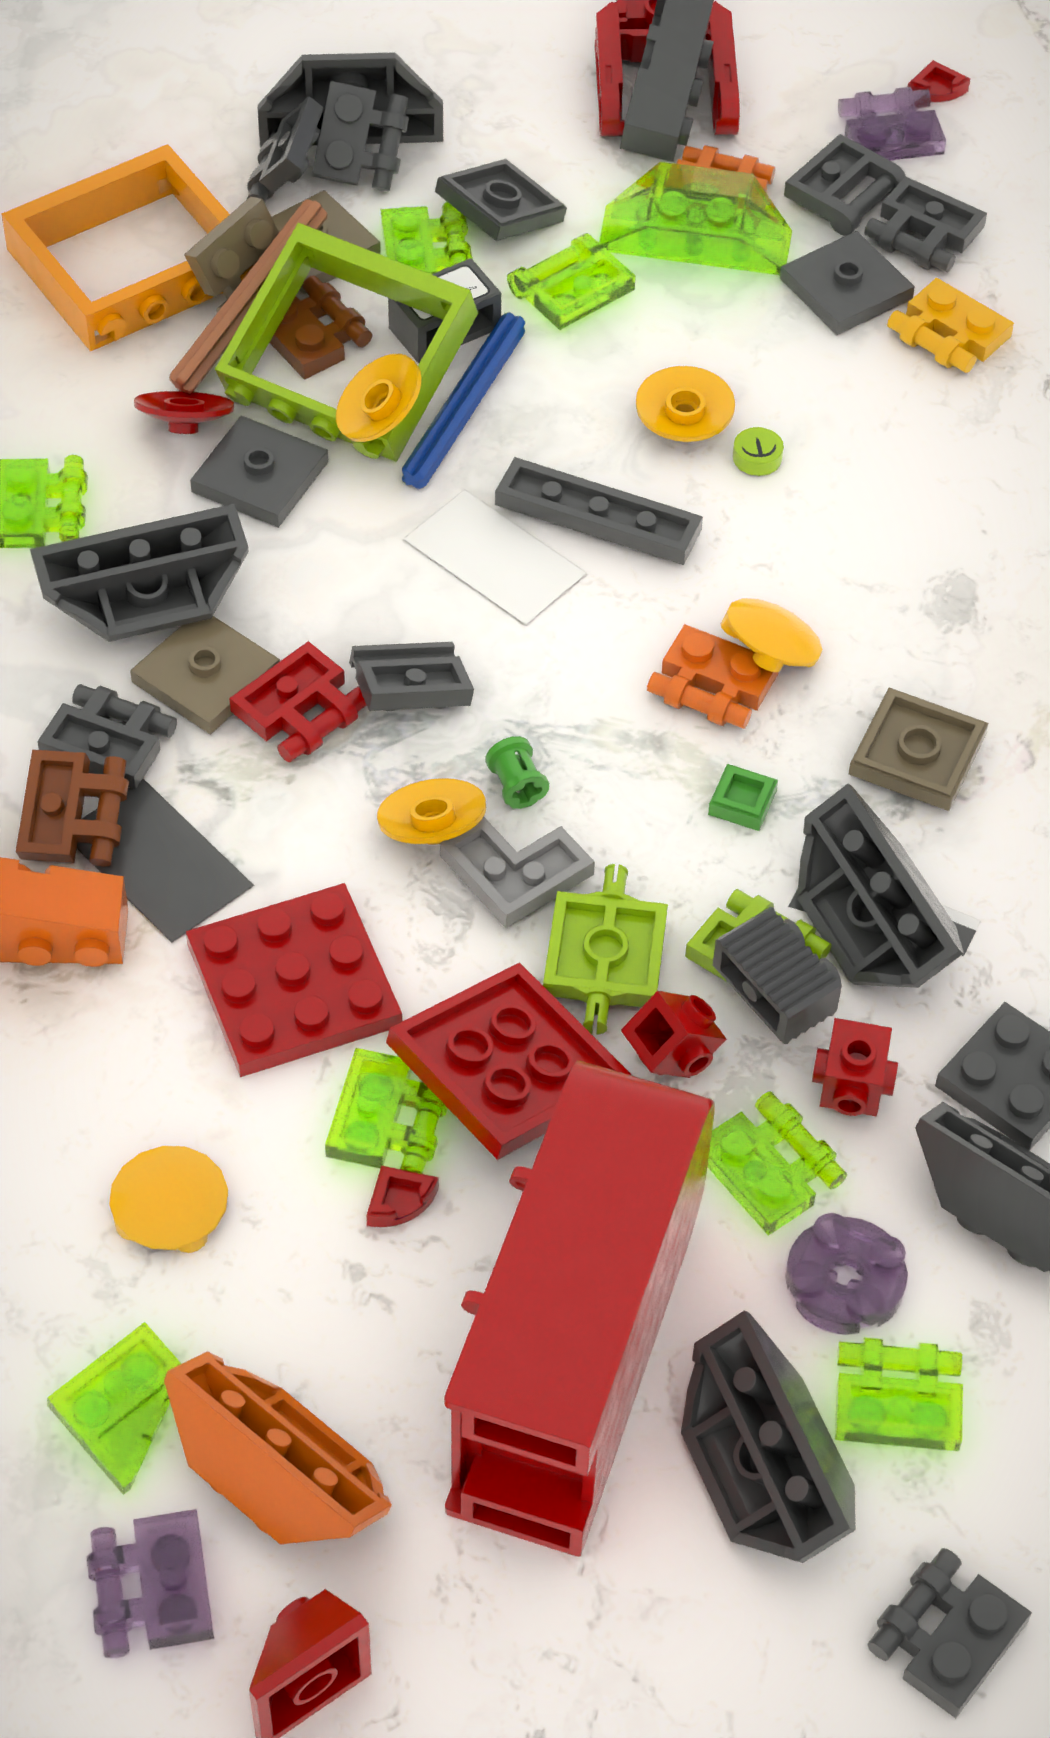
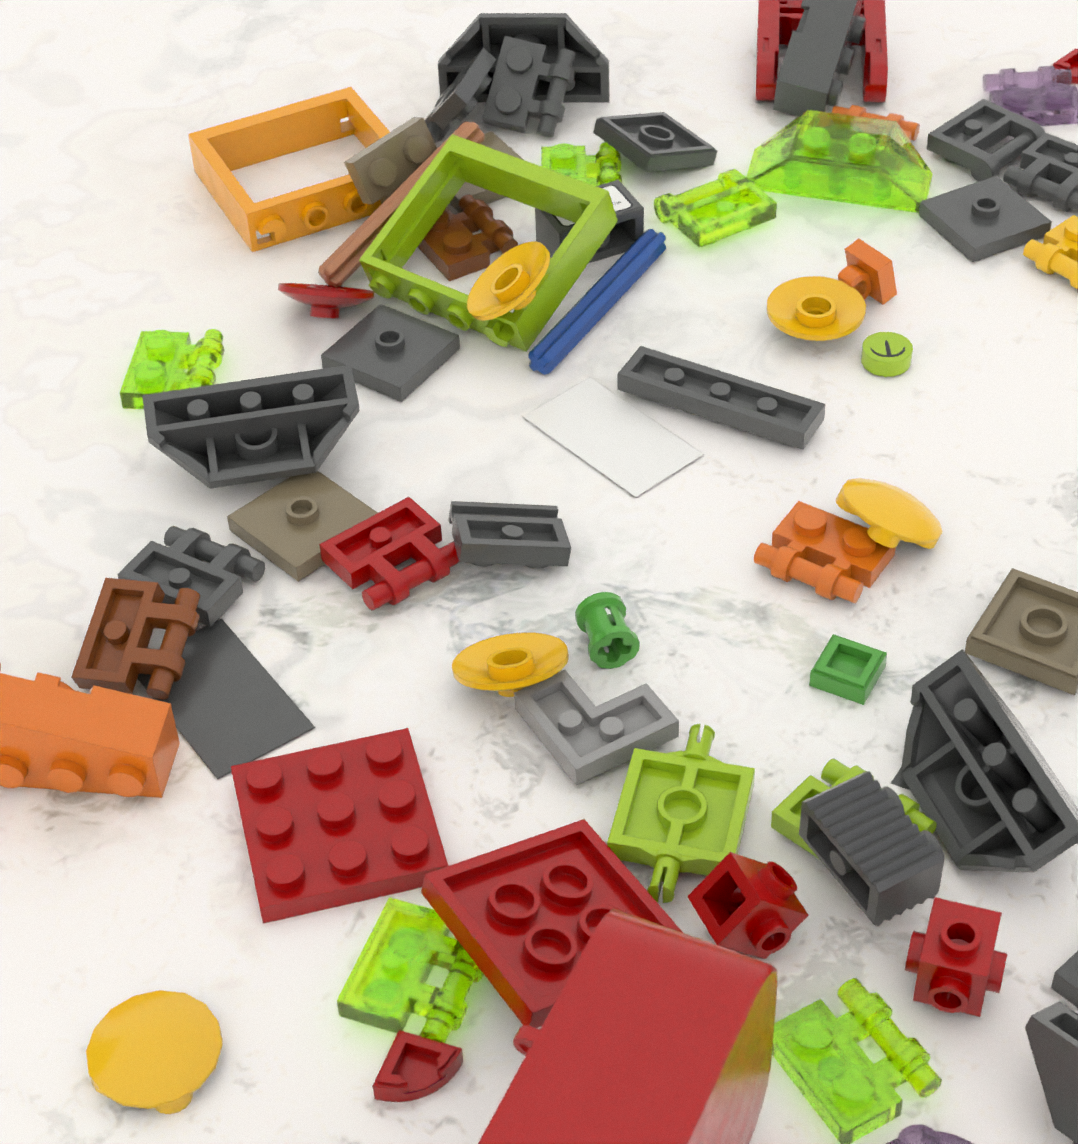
camera: 10 degrees right, 10 degrees down
(734, 358) = (869, 272): none -> orange tile

